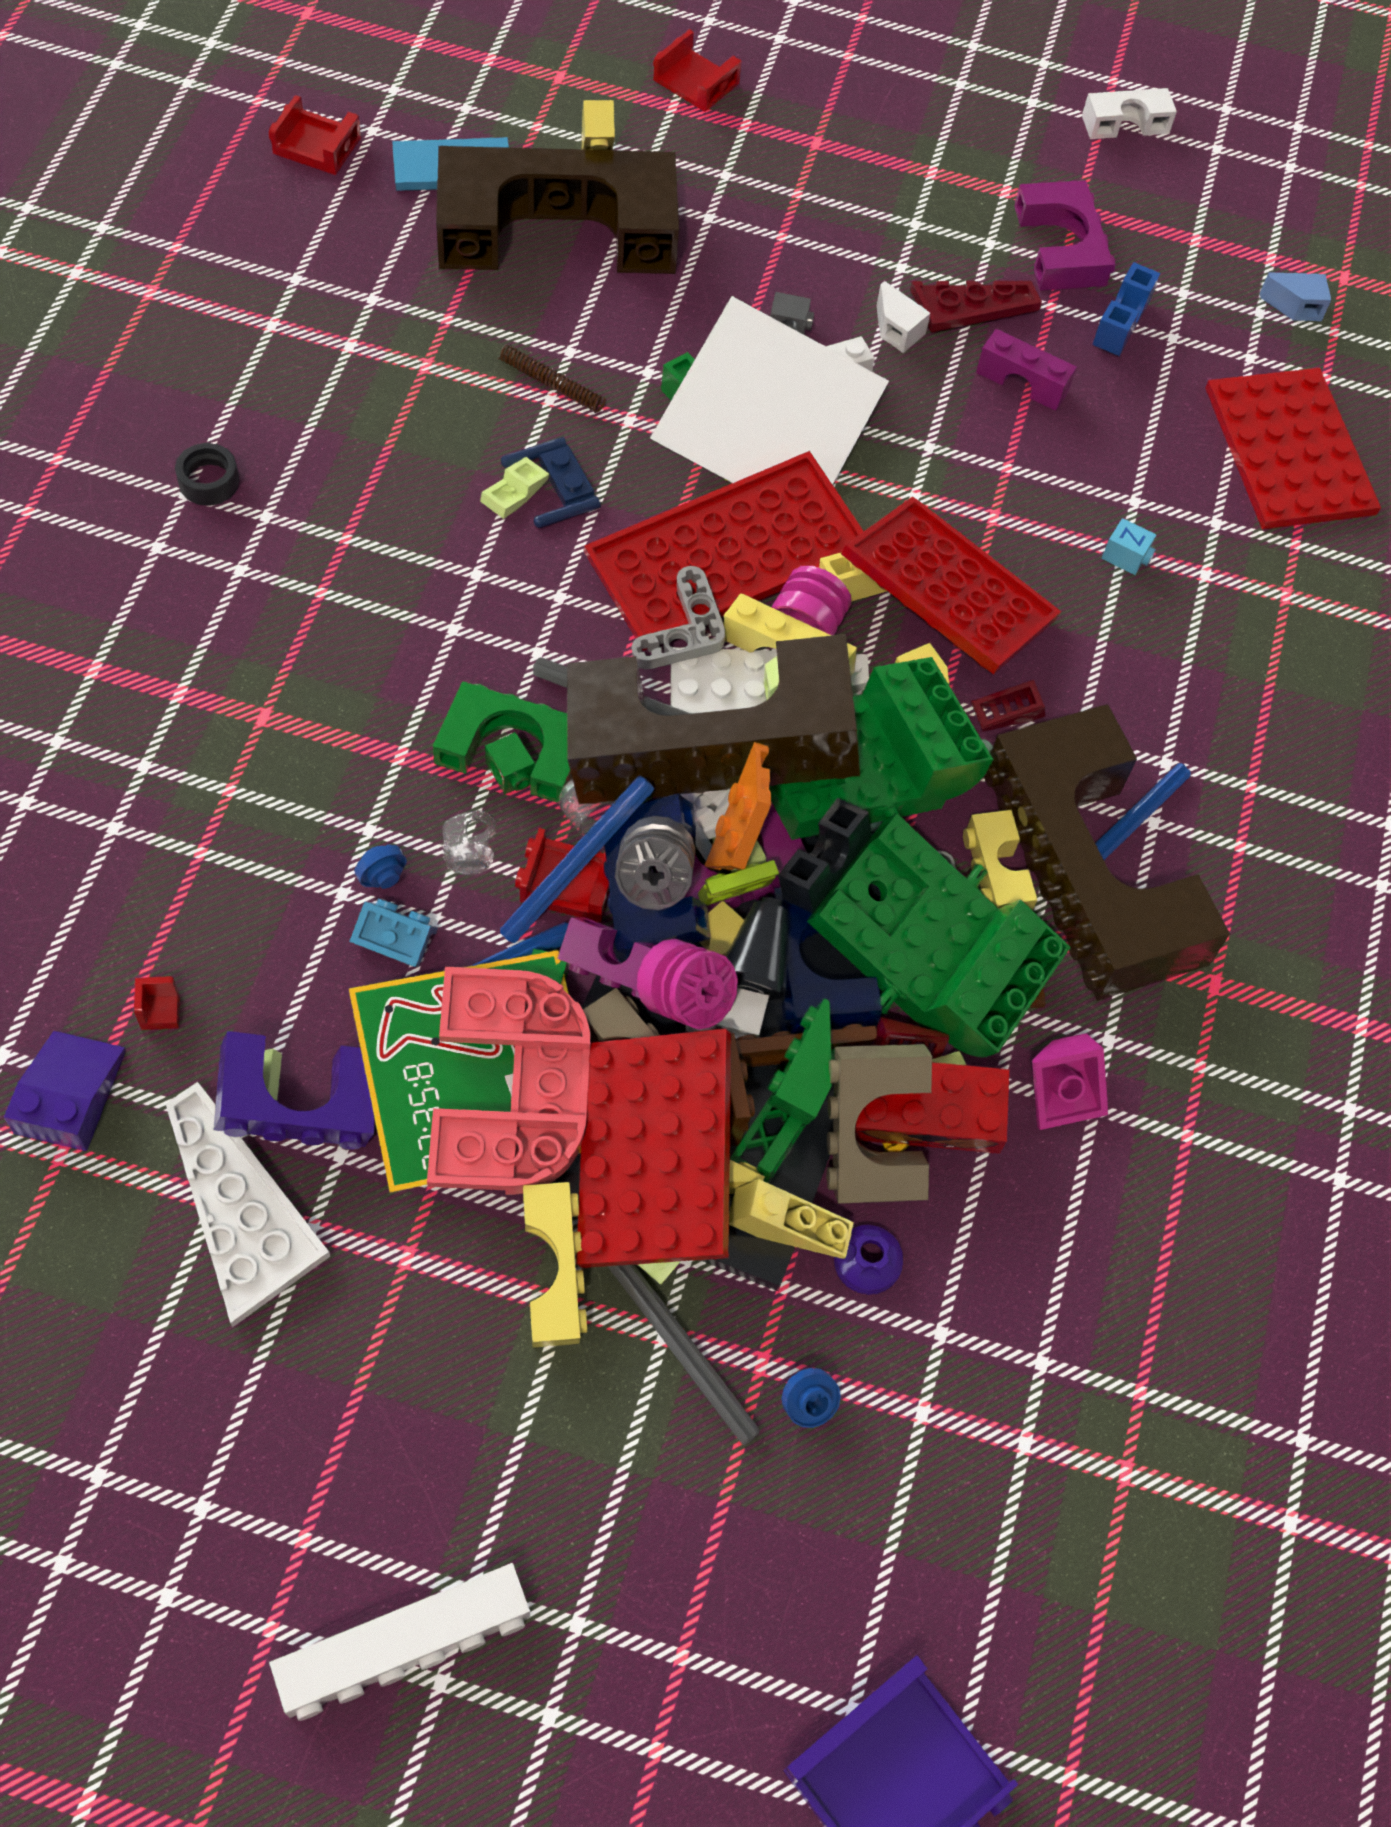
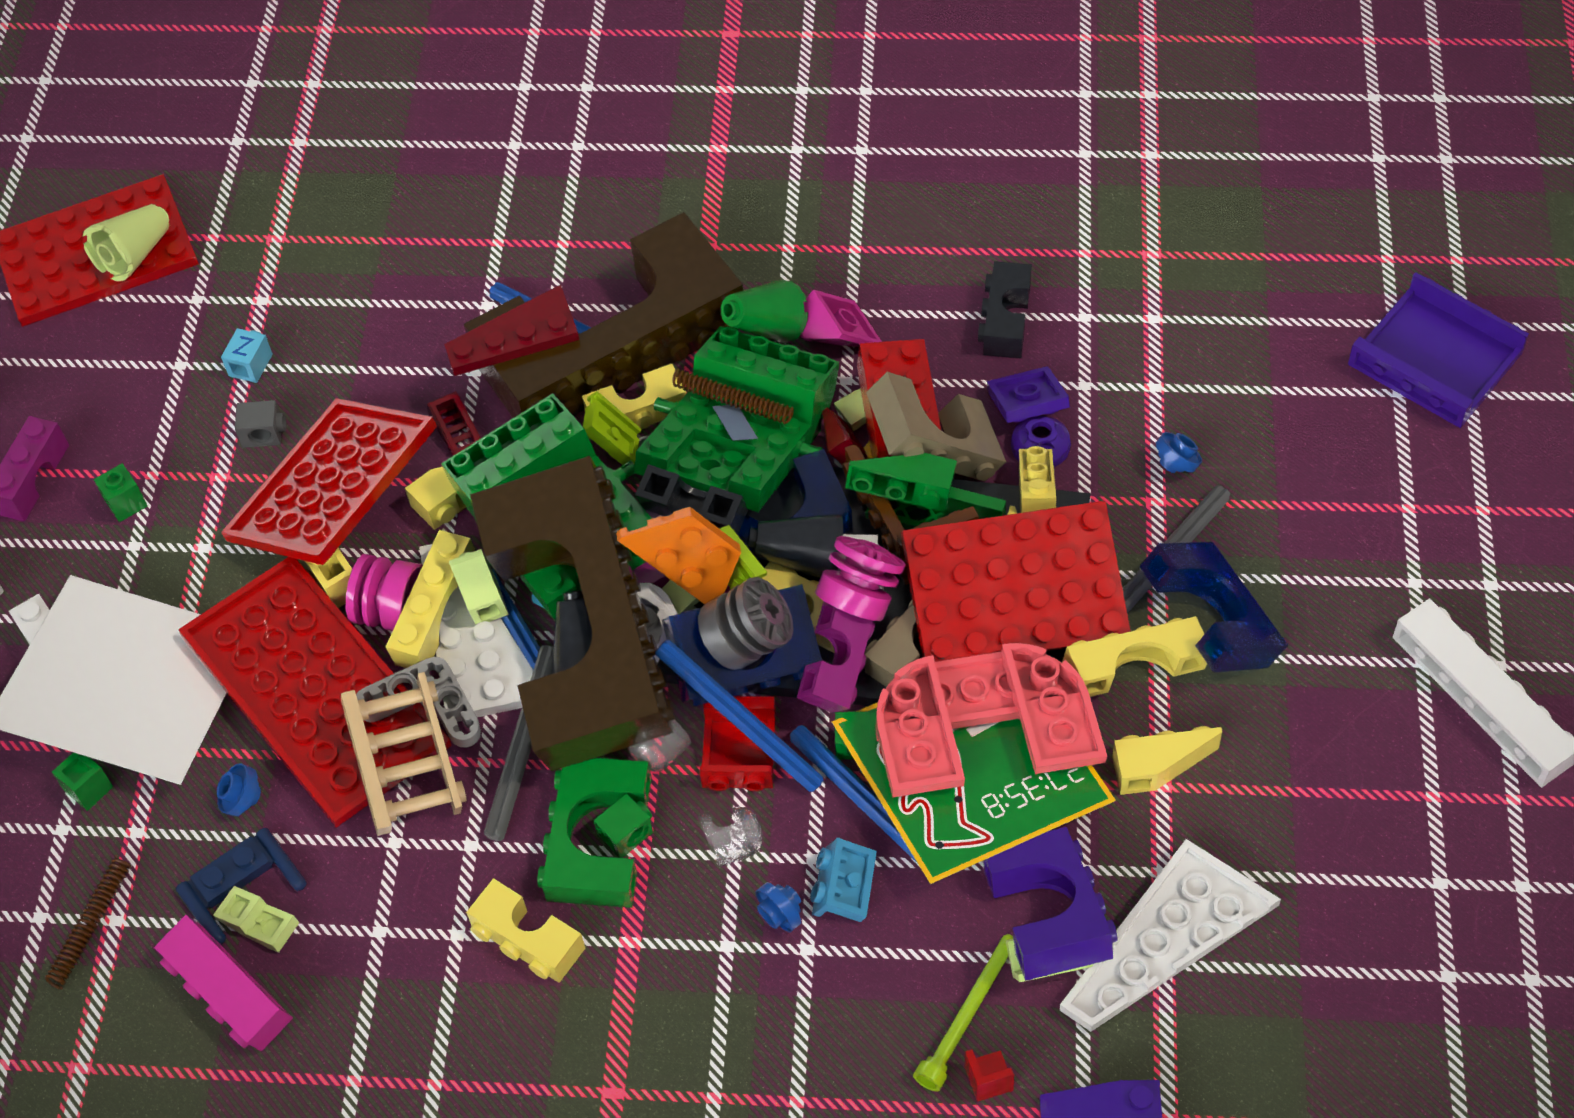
camera: 90 degrees left, 5 degrees down
(178, 959) = (932, 1071): none -> lime piece
(428, 1247) = (1154, 760): none -> light yellow slope
(449, 652) = (547, 950): none -> light yellow arch
(454, 451) = (222, 983): none -> dark pink brick
(624, 564) = (376, 778): none -> tan fence
(638, 1374) = (1247, 636): none -> clear blue arch
(639, 484) = (238, 790): none -> blue plate
(927, 1253) = (1028, 394): none -> dark purple plate
(928, 925) = (735, 422): none -> sand blue sticker
(939, 952) = (732, 394): none -> reddish brown piece
(954, 819) = (611, 429): none -> lime plate
(982, 433) = (120, 492): none -> green brick
(1042, 546) = (259, 423): none -> dark grey brick
(1082, 747) = (517, 333): none -> dark red wing
(1084, 994) = (767, 311): none -> green cone
(1091, 1273) = (1003, 329): none -> black arch
(1281, 456) = (125, 240): none -> yellowish green cone

